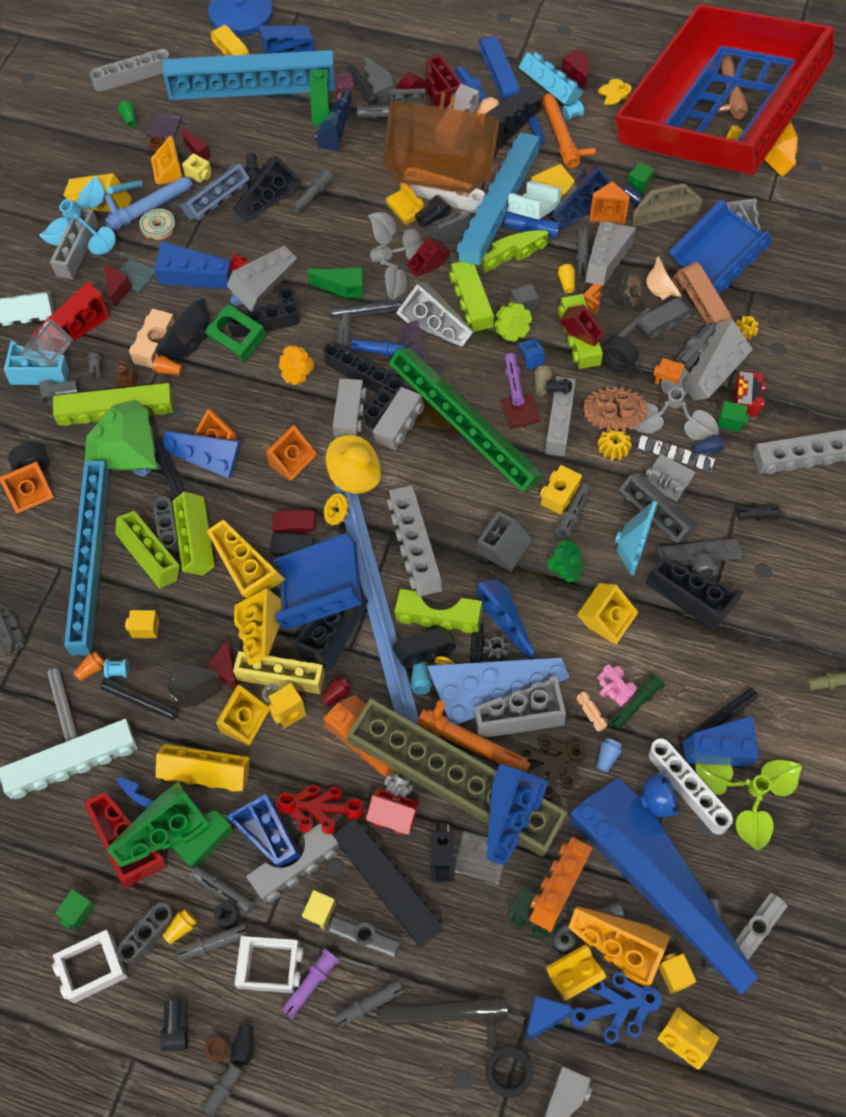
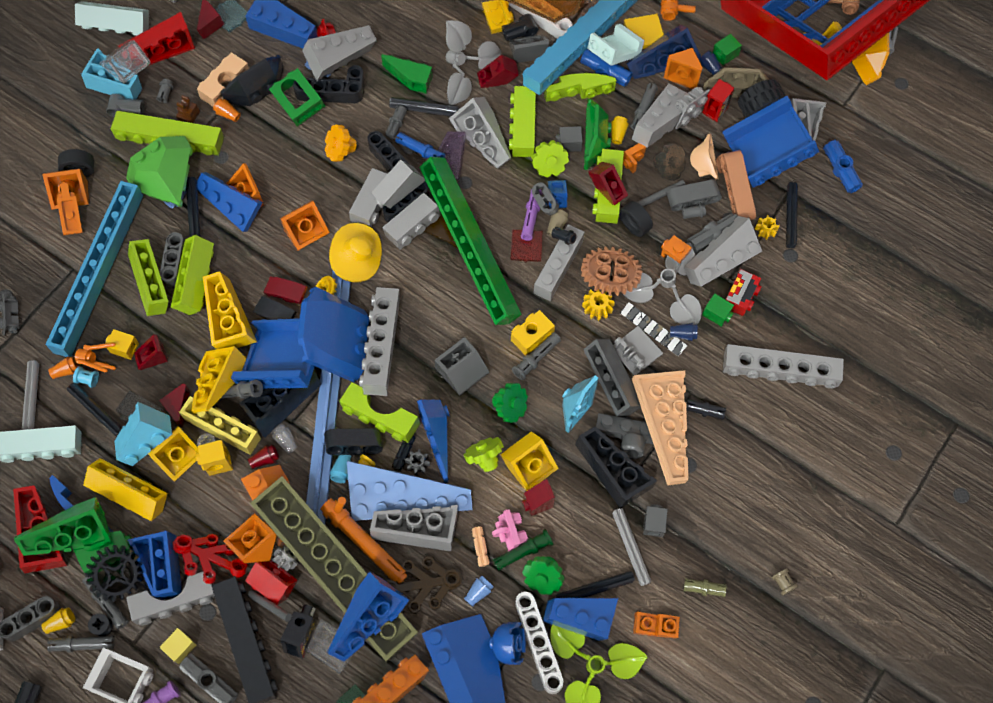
camera: 15 degrees right, 5 degrees up
(37, 508) = (68, 211): none -> orange hinge
(111, 647) = (87, 357): none -> orange plant
(177, 624) = (150, 353): none -> dark red slope
(203, 703) = (141, 434): none -> medium azure wedge
(233, 837) = (128, 583): none -> black gear
(294, 627) = (245, 389): none -> dark grey pin
(349, 665) = (284, 438): none -> clear cone
(360, 775) = (252, 541): none -> orange slope
(366, 546) = (333, 334): none -> blue wedge
(374, 385) = (397, 184): none -> light grey slope
(402, 836) = (269, 605): none -> dark grey bar
(526, 356) = (542, 200): none -> dark grey beam
(547, 286) = (595, 133): none -> green wedge
(561, 618) = (484, 453): none -> lime plant
(629, 233) = (691, 105): none -> light grey hinge
(634, 644) = (539, 498): none -> dark red slope
(653, 224) = (718, 100): none -> red brick
(668, 717) = (543, 575): none -> green plant
(670, 333) = (695, 211): none -> dark grey pin
(693, 209) = (760, 96): none -> black tyre
(725, 527) = (666, 417): none -> light nougat wing
(741, 665) = (631, 547): none -> light grey axle
(755, 632) = (655, 521): none -> dark grey brick
(764, 310) = (791, 219): none -> black axle
(794, 253) = (847, 173): none -> blue piece
(797, 733) = (656, 625): none -> orange slope

